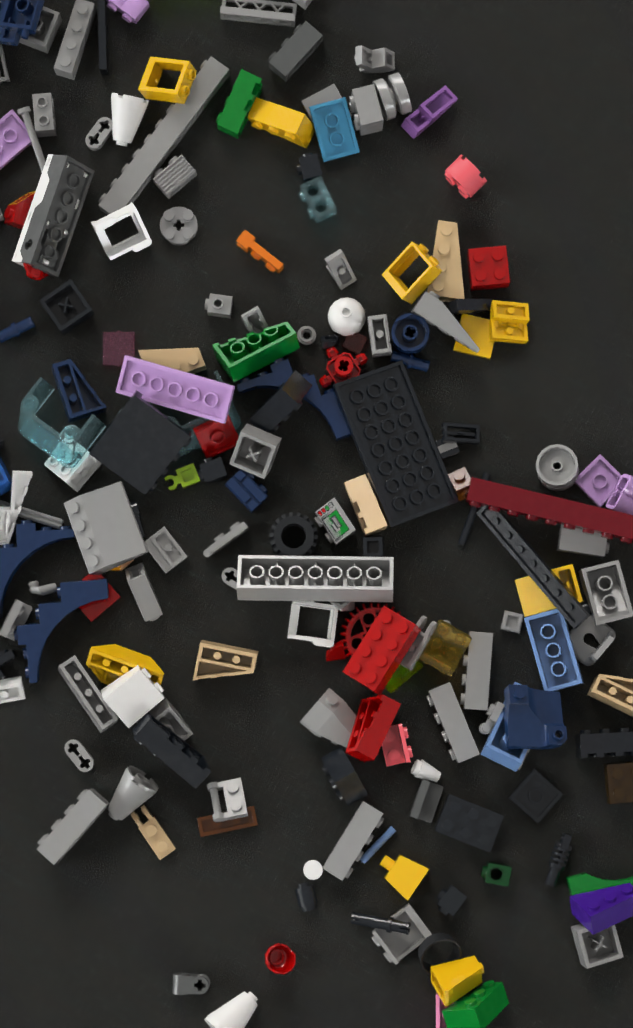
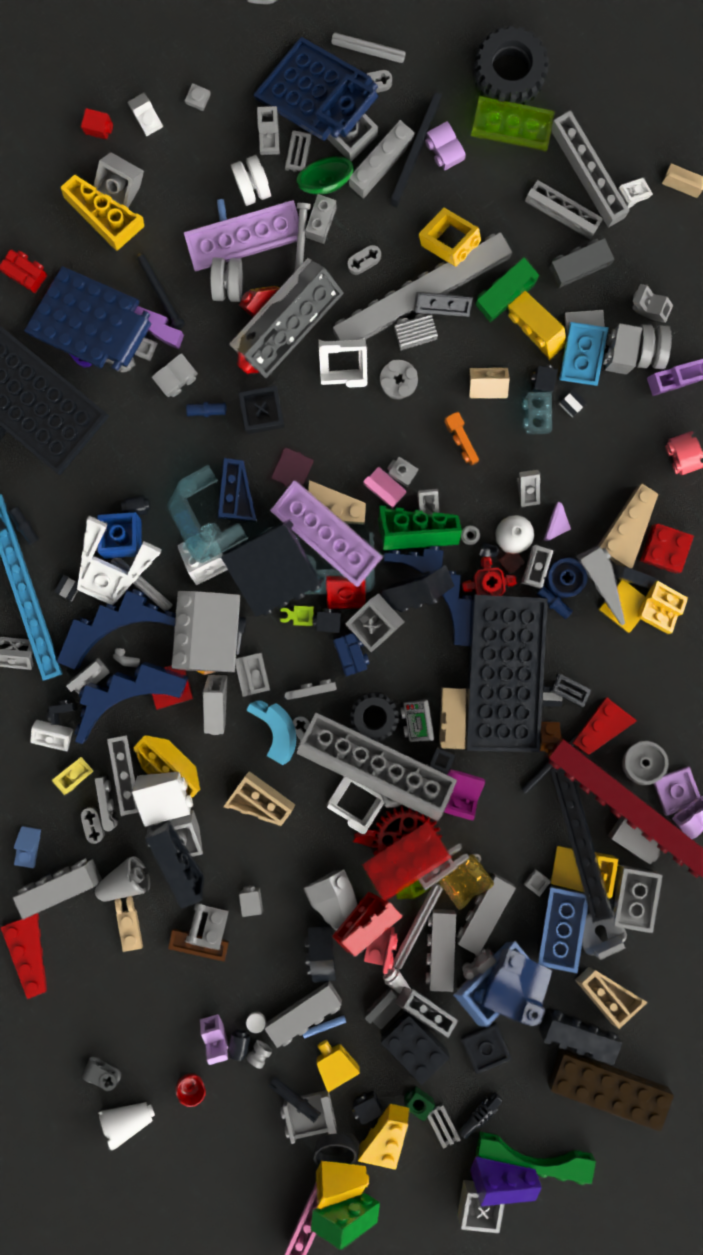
camera: 25 degrees right, 5 degrees up
(27, 804) = (27, 846): none -> medium blue slope
(31, 75) = (325, 175): none -> green dish
(41, 716) = (72, 776): none -> light yellow slope
(70, 903) = (26, 952): none -> red wing
(82, 728) = (105, 803): none -> light grey plate
(126, 117) = (396, 255): white cone -> none
(188, 141) = (443, 304): none -> tile
(209, 327) = (384, 487): none -> bright pink panel
(216, 586) = (282, 728): none -> medium azure arch
(257, 757) = (250, 901): none -> light grey brick
(261, 192) = (489, 382): none -> tan panel
(280, 900) = (214, 1038): none -> lavender brick
(329, 896) = (259, 1054): none -> light grey wheel
(345, 177) = (573, 403): none -> tile
(381, 289) = (558, 522): none -> lavender slope
(402, 262) = (589, 508): yellow window -> none
(407, 570) = (464, 795): none -> magenta bracket
(420, 710) = (417, 926): none -> light grey axle
(463, 783) = (426, 1011): none -> dark grey brick
(481, 919) = (386, 1139): none -> yellow wedge
(505, 452) = (602, 726): none -> red wing
(542, 896) = (450, 1140): none -> light grey tile

